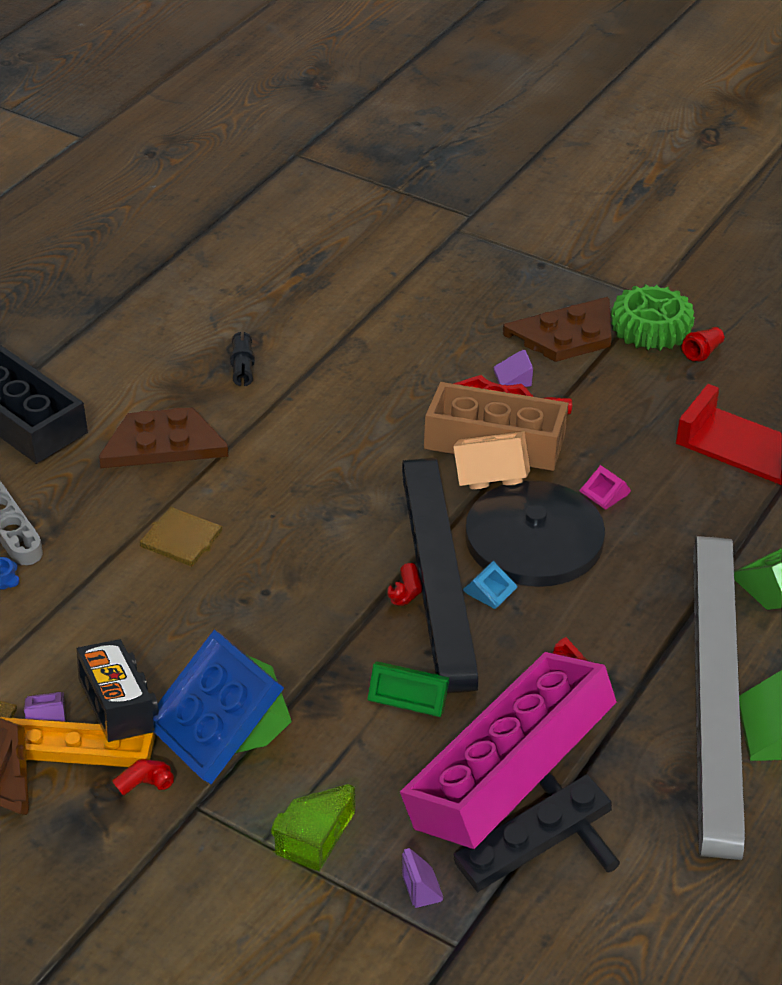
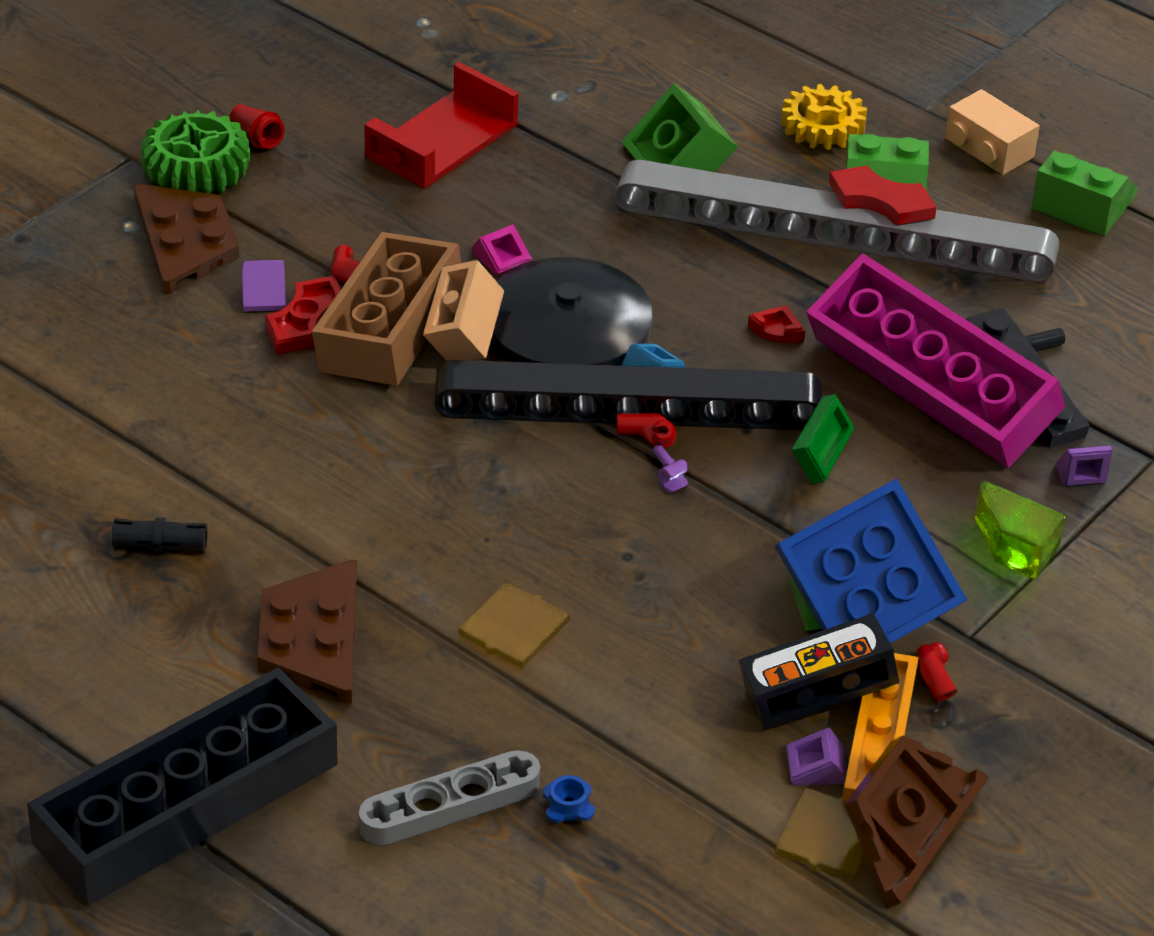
camera: 85 degrees left, 0 degrees up
(356, 607) = (671, 474): none -> medium lavender hand
(733, 711) = (867, 190): none -> red tile

